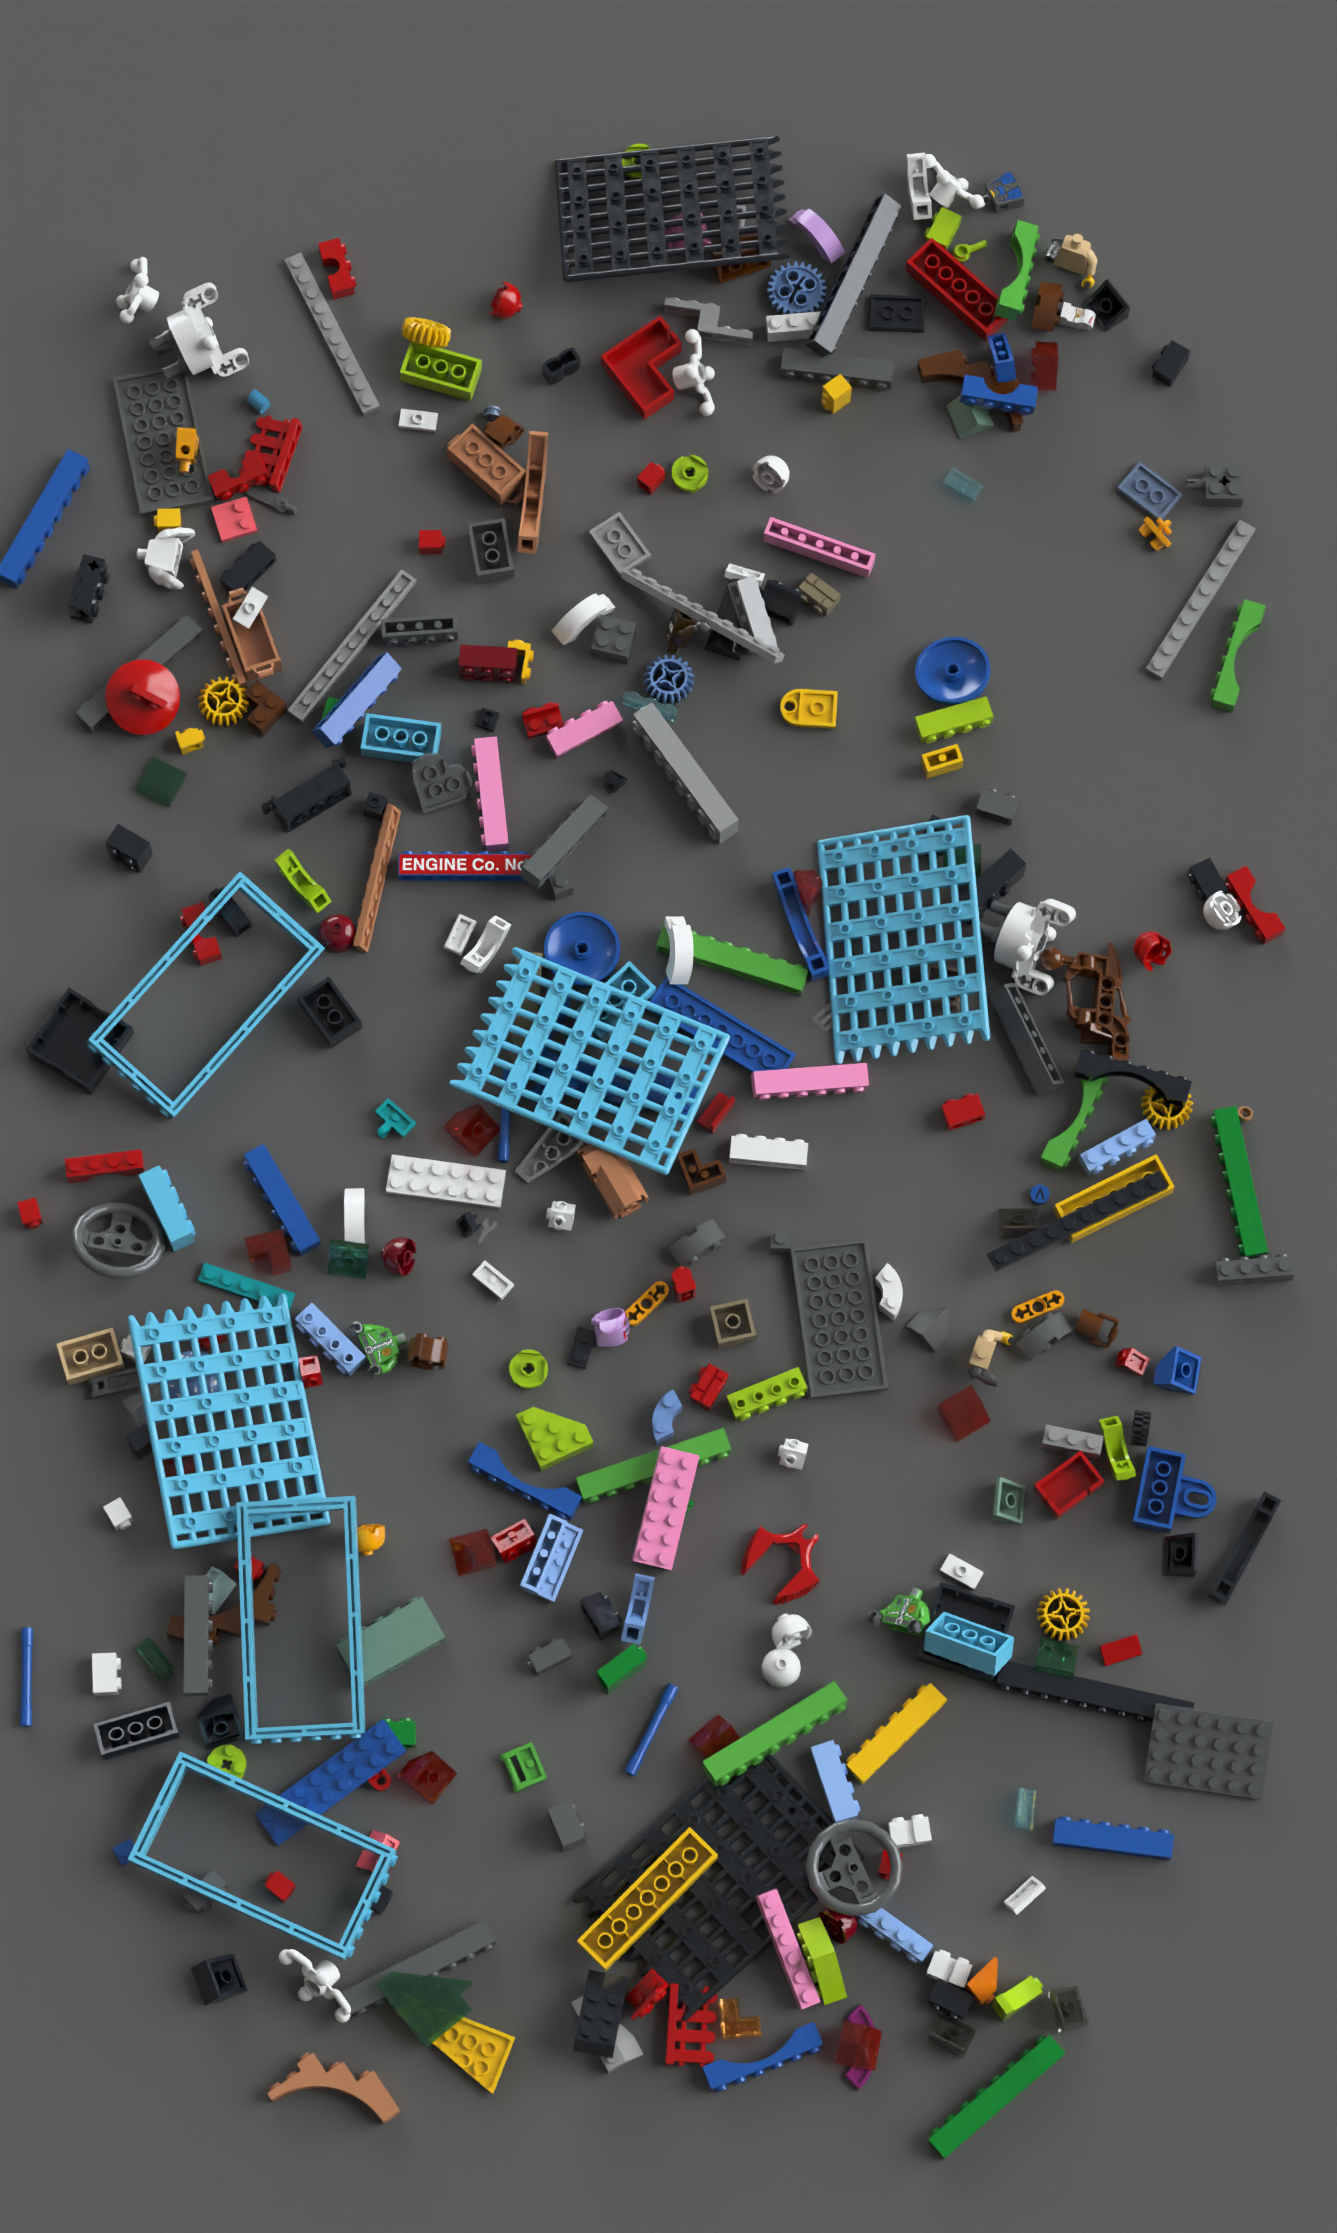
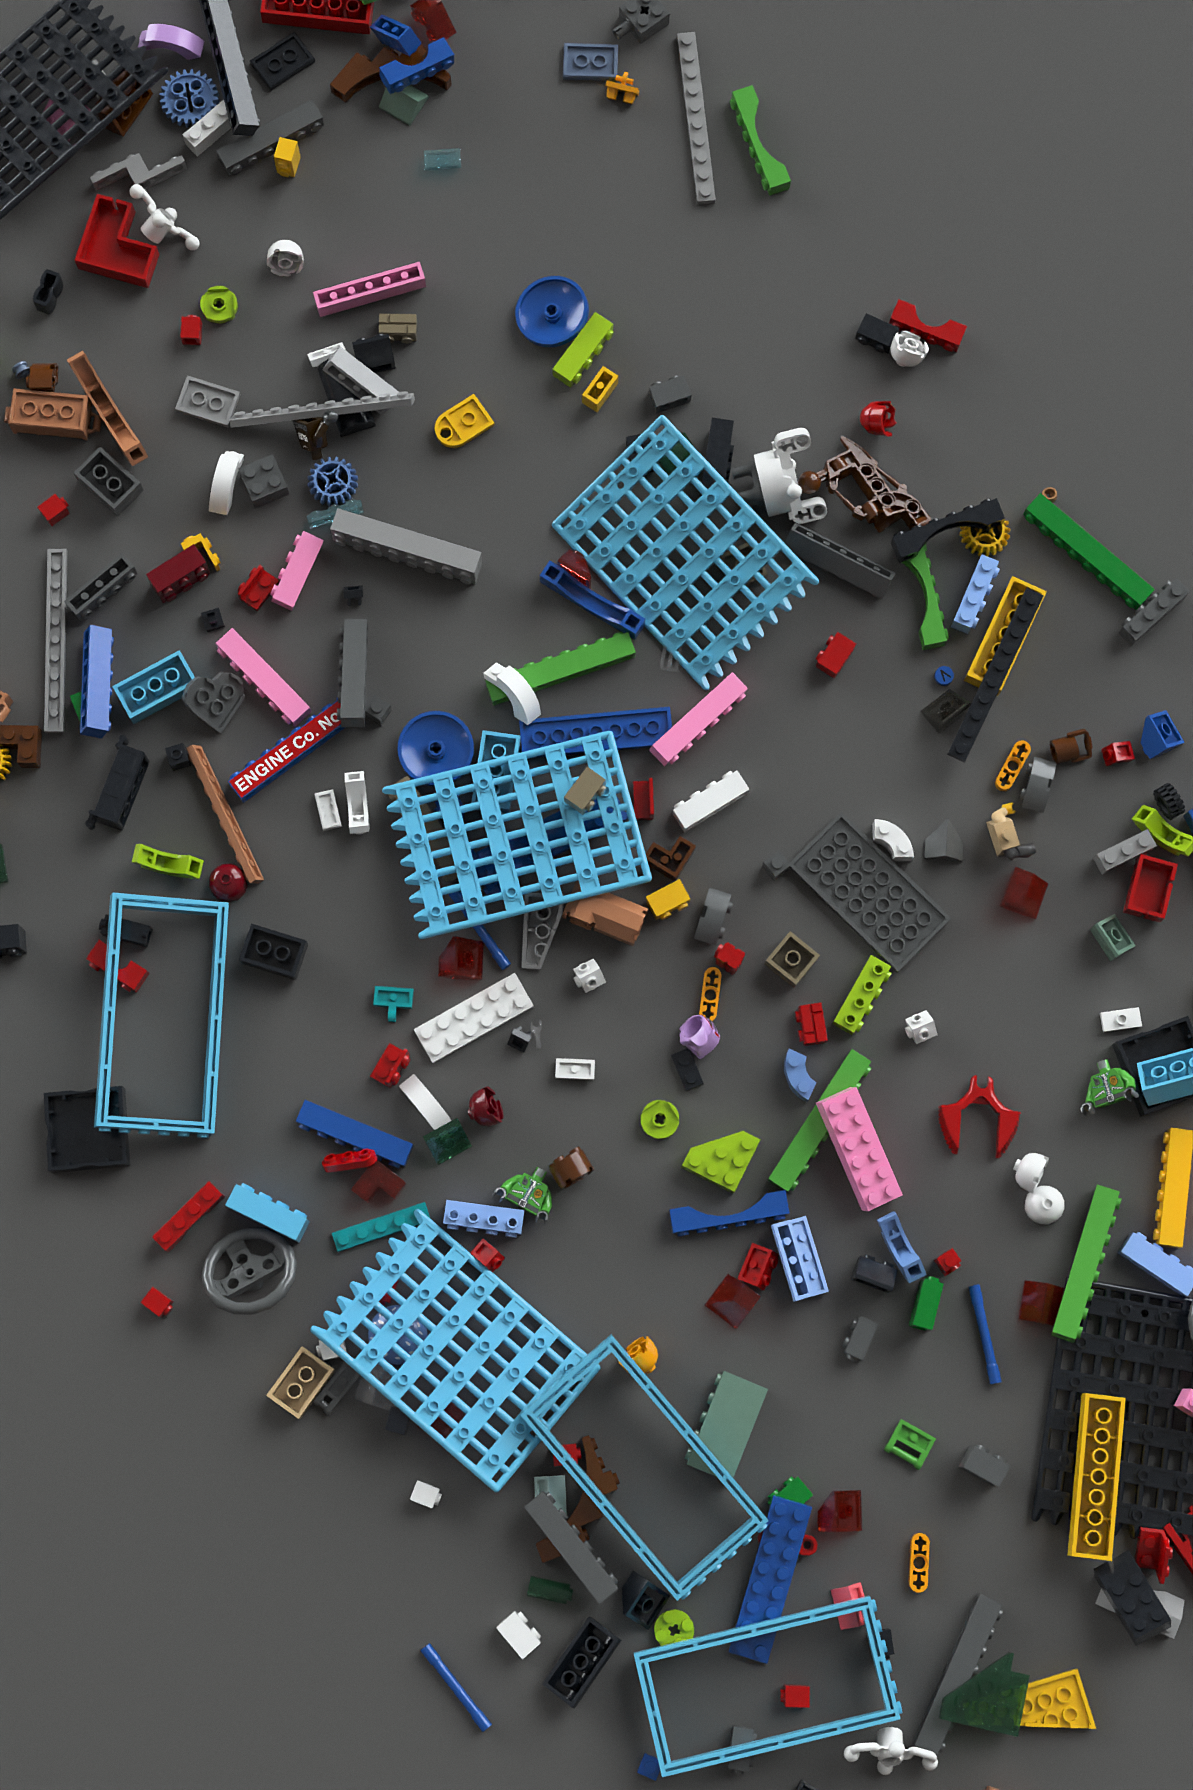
camera: 40 degrees left, 5 degrees up
(261, 1215) = (349, 1160): none -> red plate
(351, 1169) = (390, 1065): none -> red bracket
(444, 1870) = (925, 1547): none -> light orange beam
(667, 1651) = (948, 1262): none -> red brick
(668, 1065) = (585, 791): none -> dark tan brick
(671, 1203) = (668, 900): none -> yellow brick

